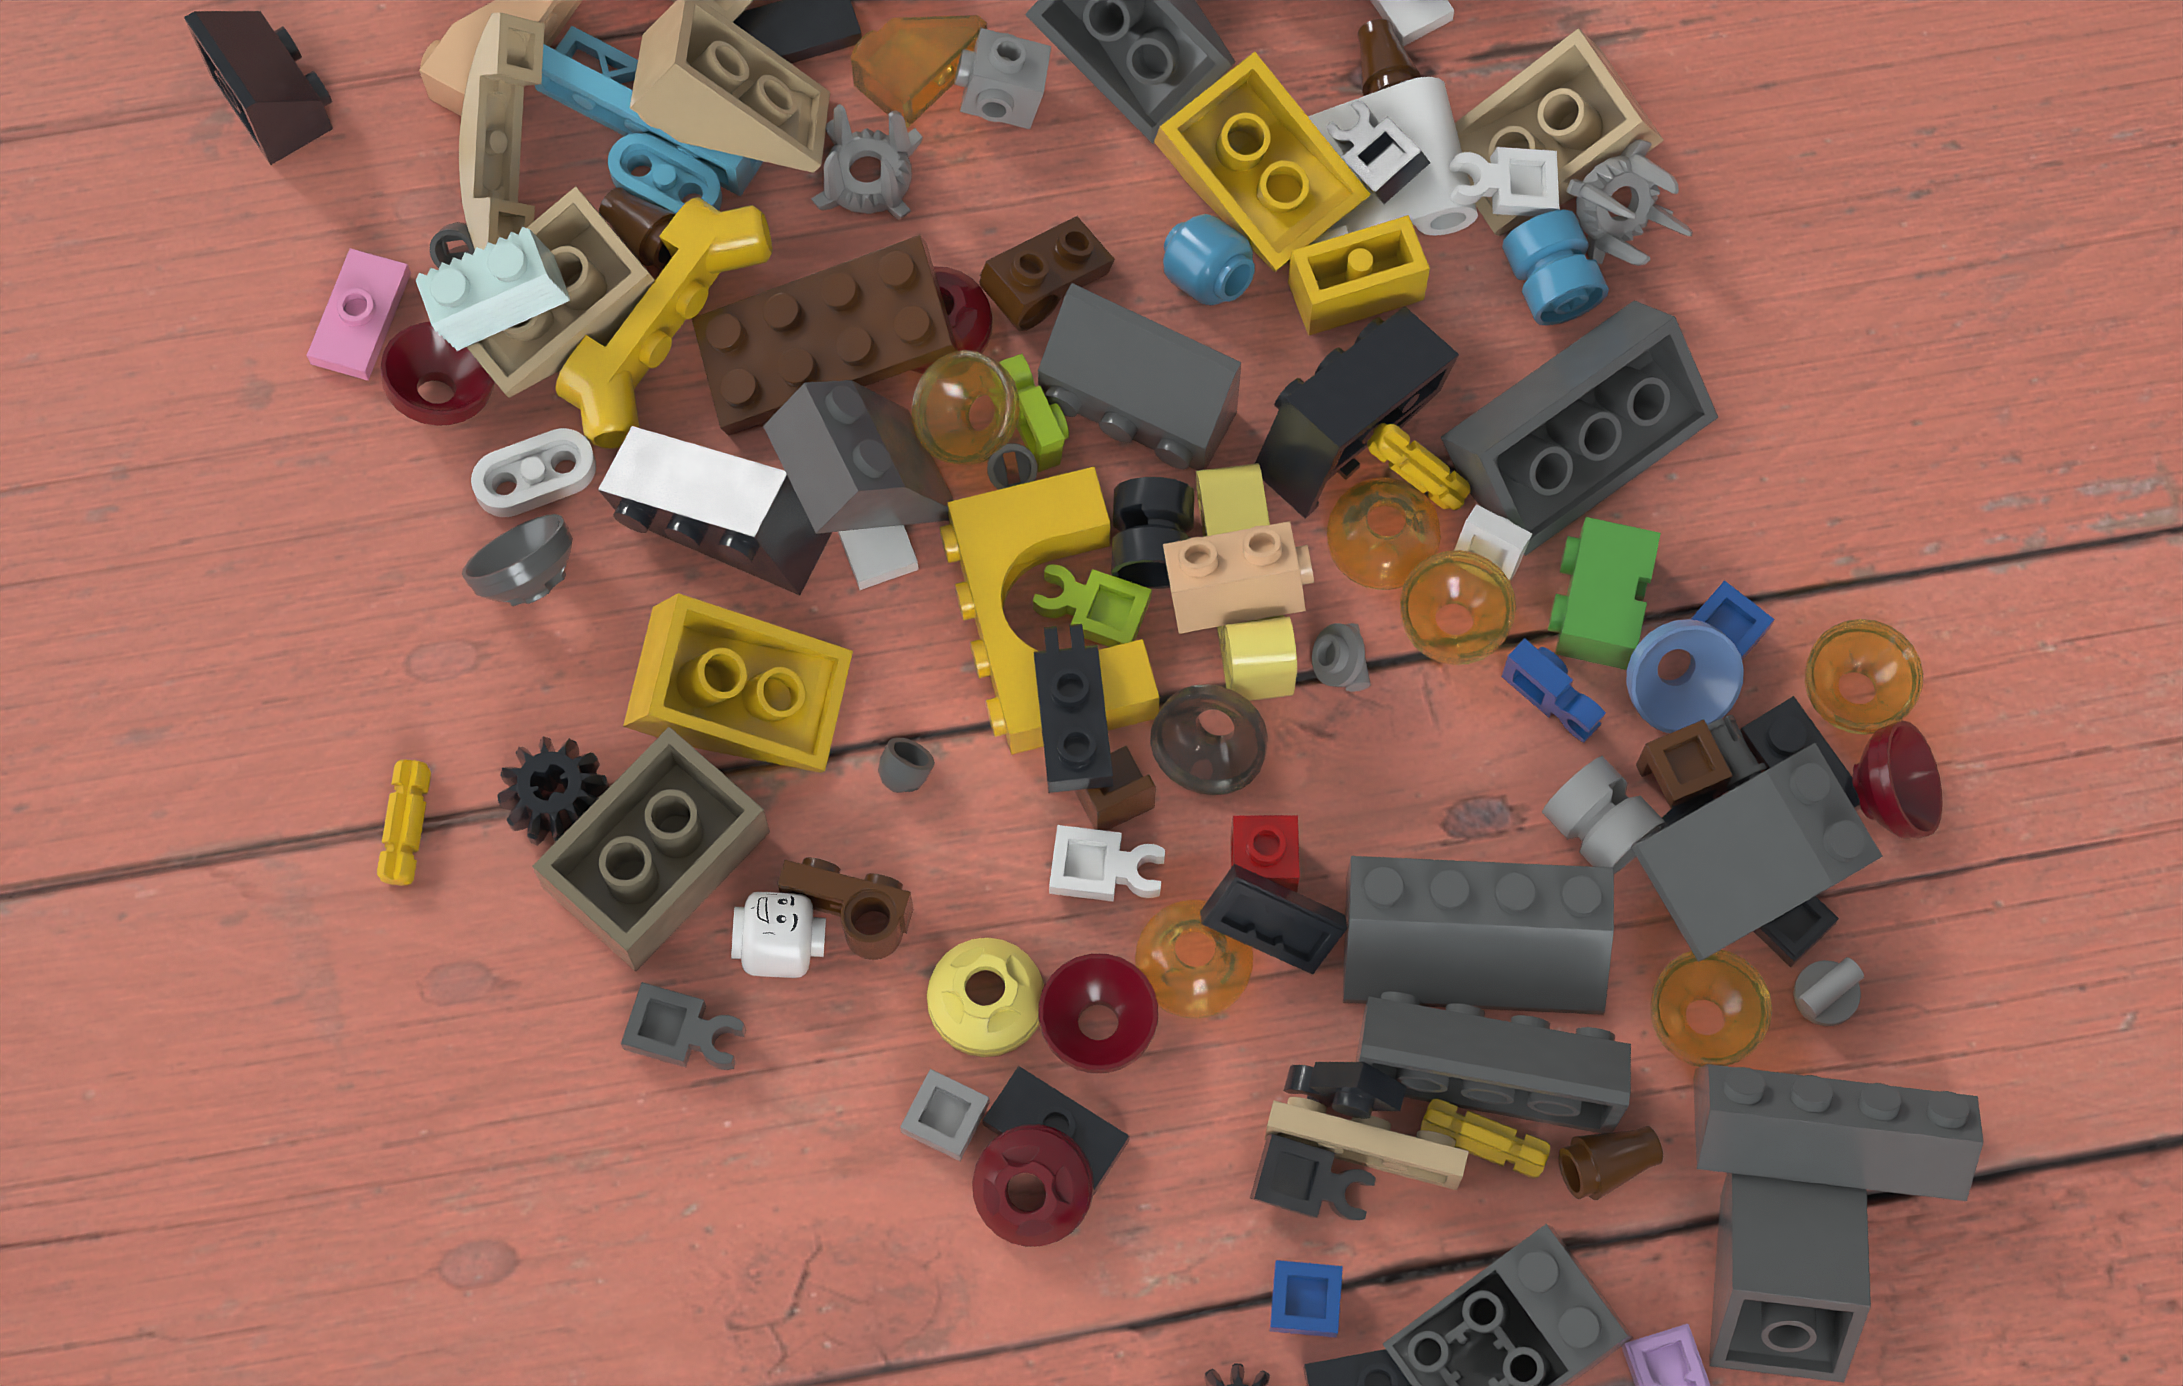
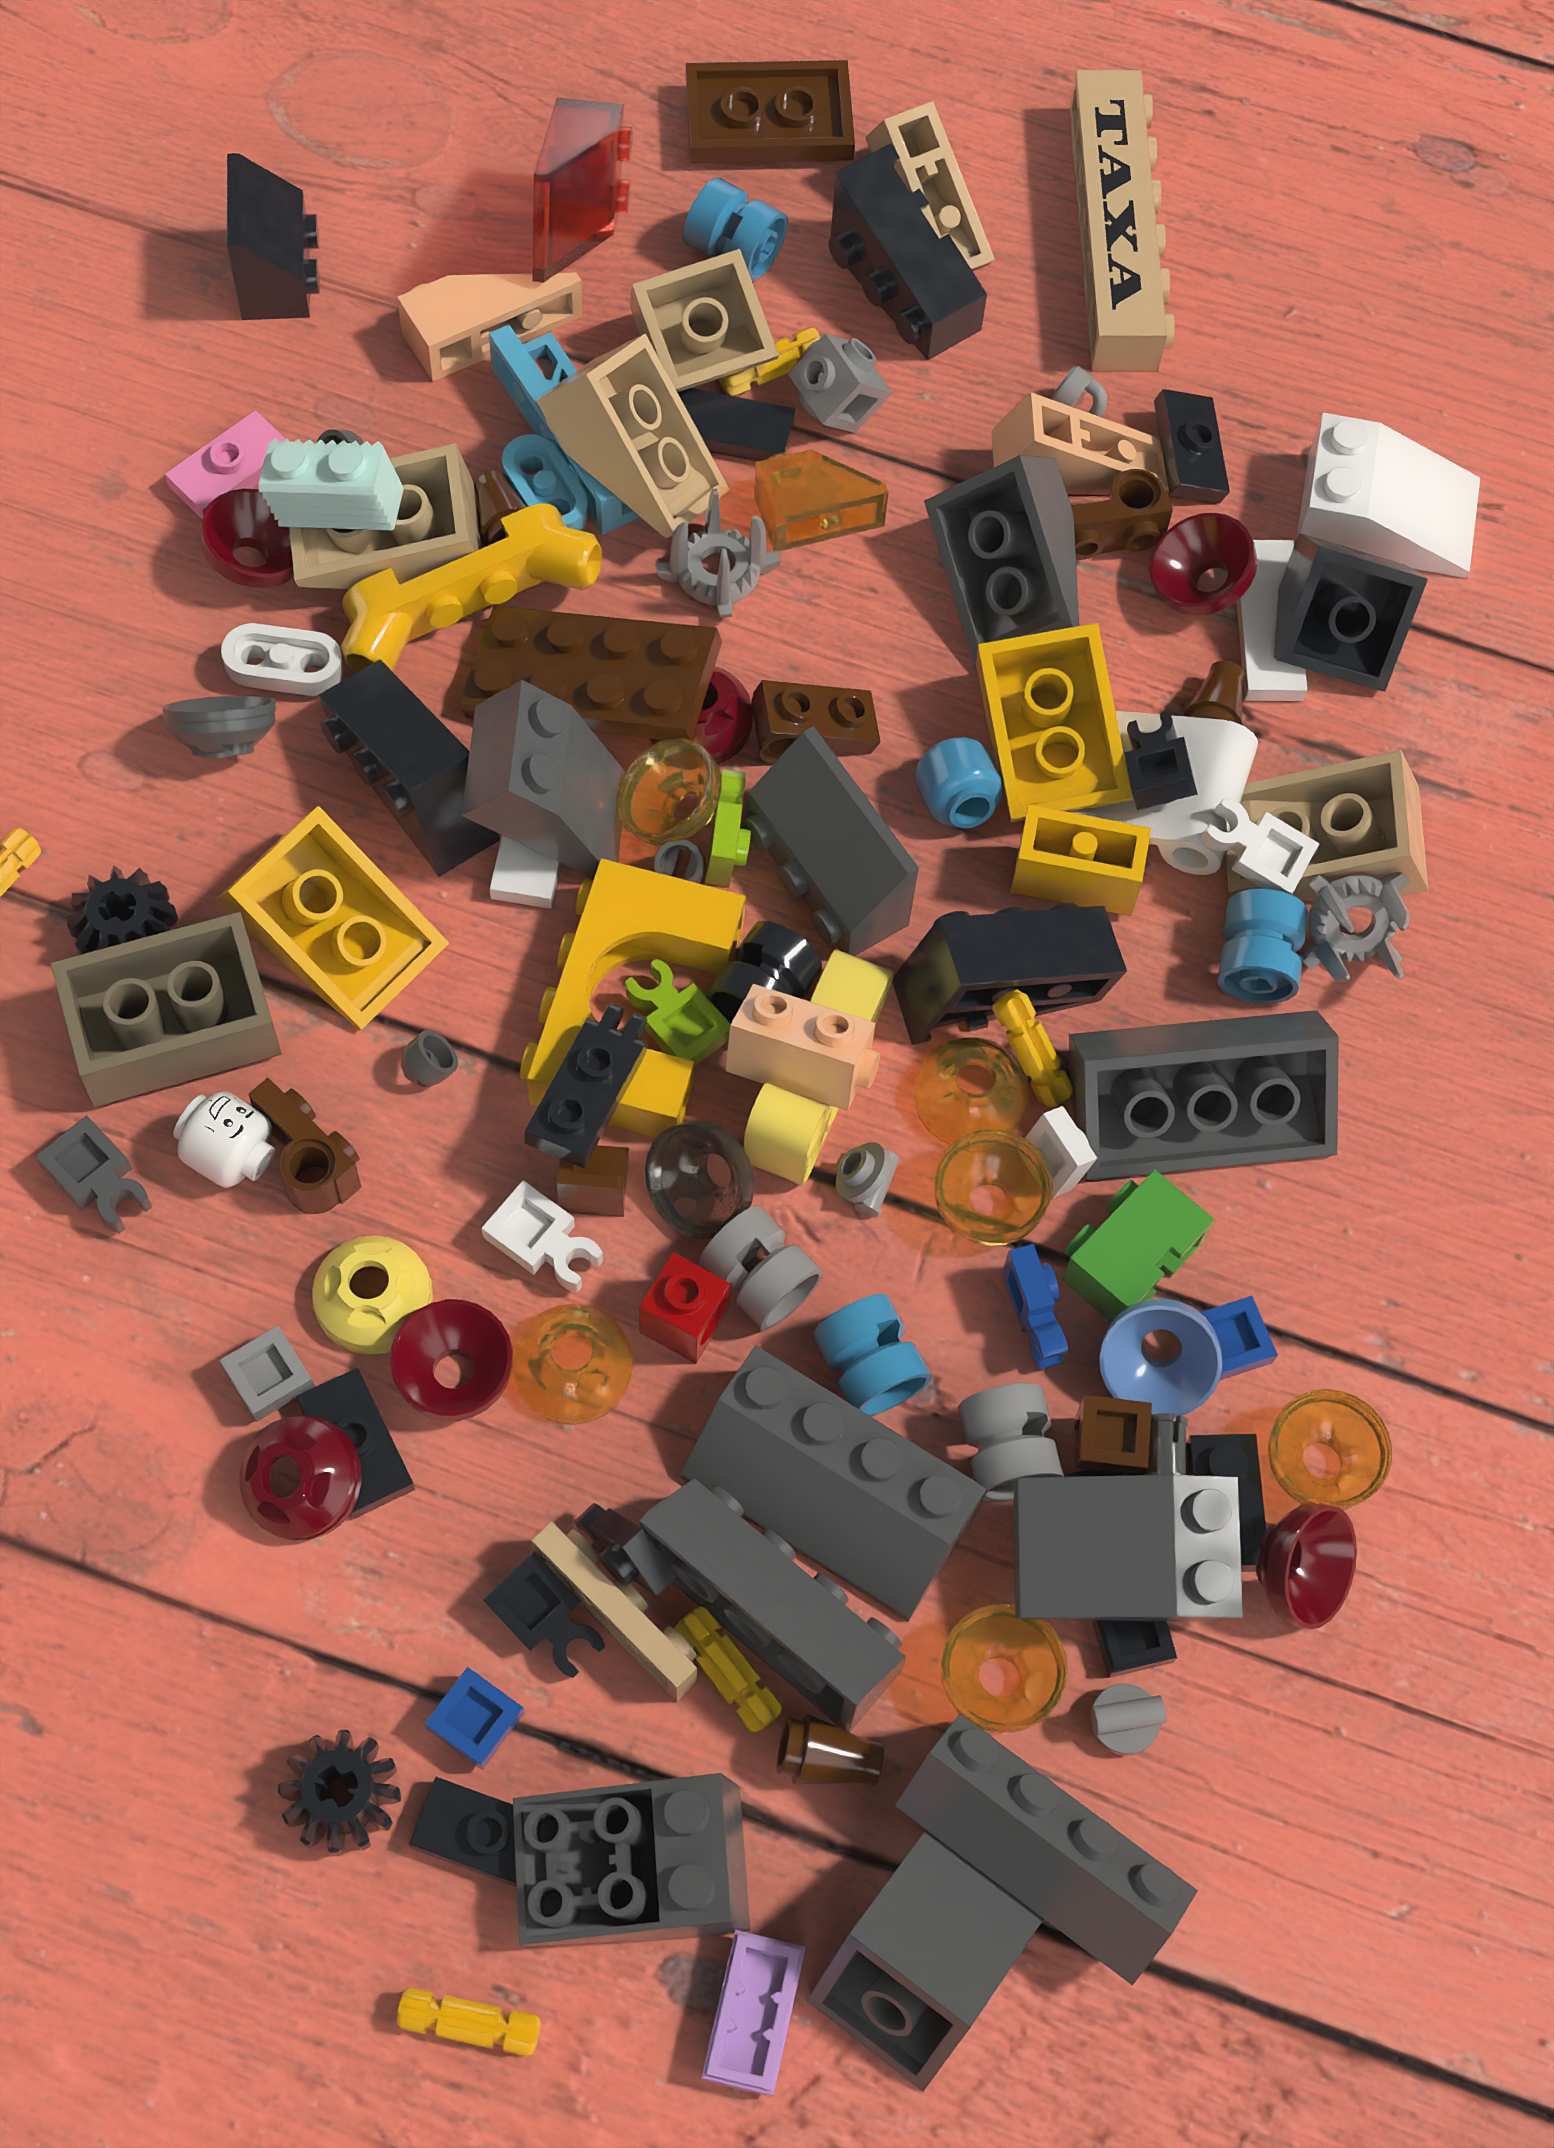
camera: 25 degrees right, 5 degrees down
(492, 127) = (431, 363): tan slope -> none
(1003, 78) = (876, 545): light grey brick -> none
(1273, 919) = (655, 1364): black plate -> none
(1328, 794) = (777, 1282): none -> light grey wheel
(1445, 808) = (869, 1350): none -> dark azure wheel

